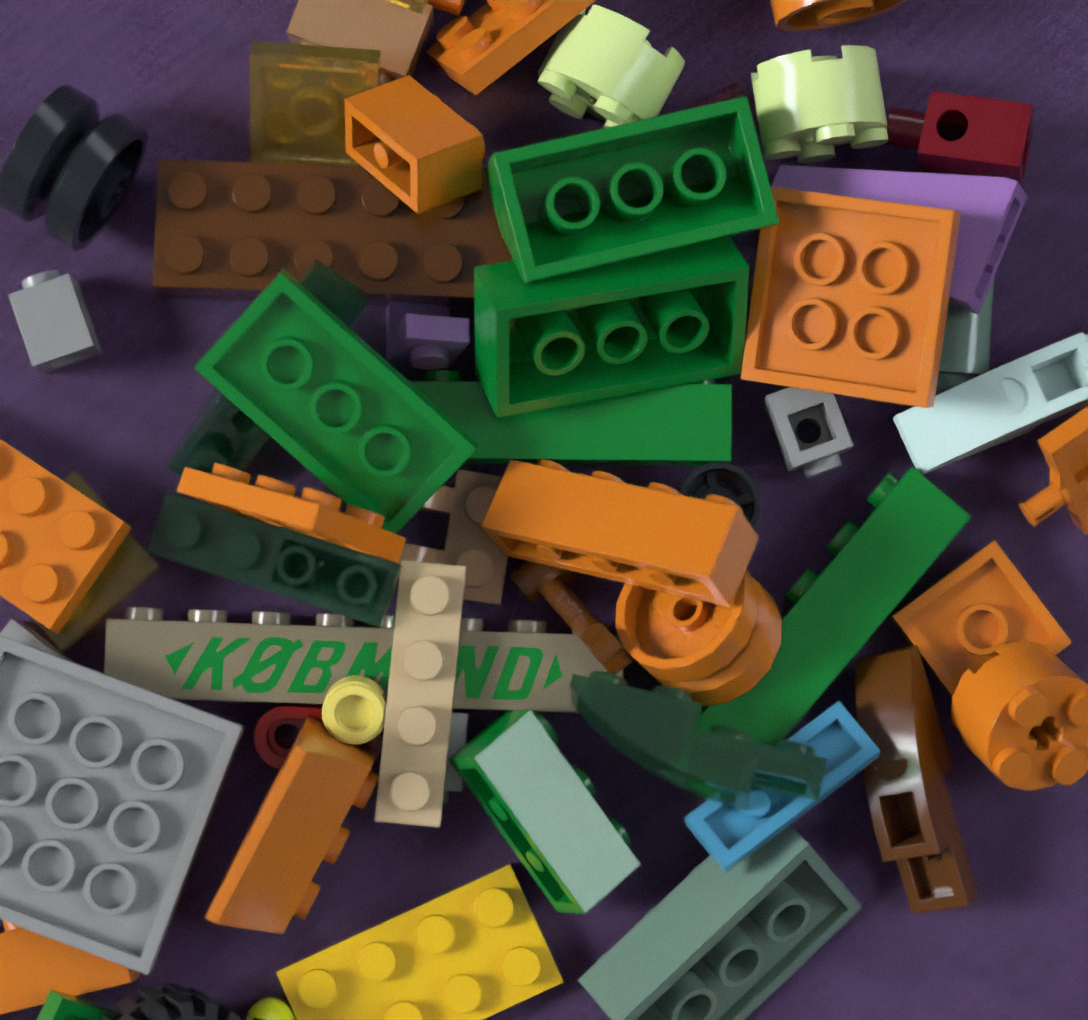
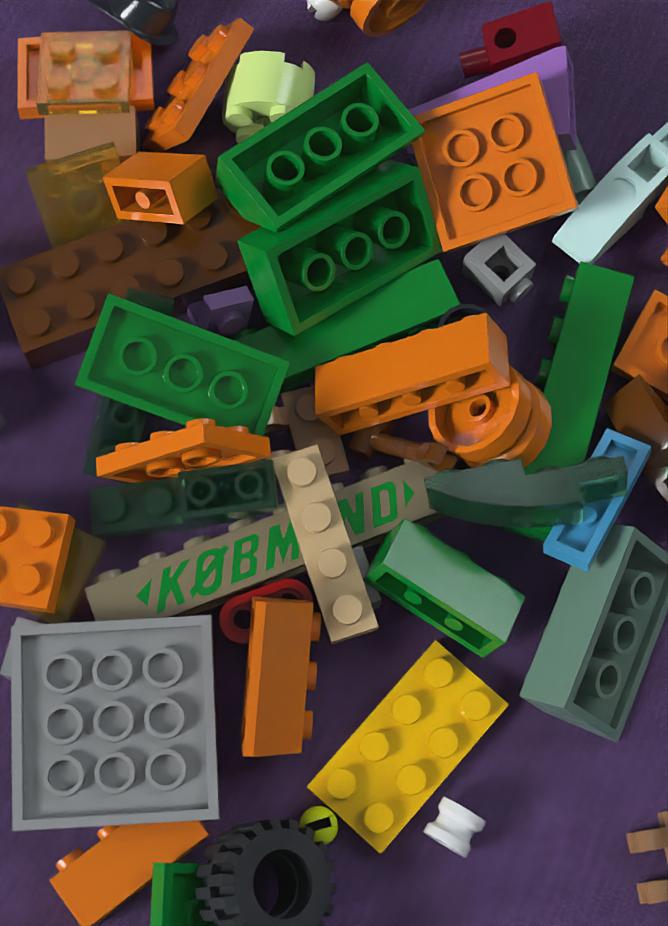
camera: 25 degrees left, 10 degrees down
(354, 710) = (283, 574): light yellow tile -> none
(819, 103) = (416, 60): yellowish green brick -> none

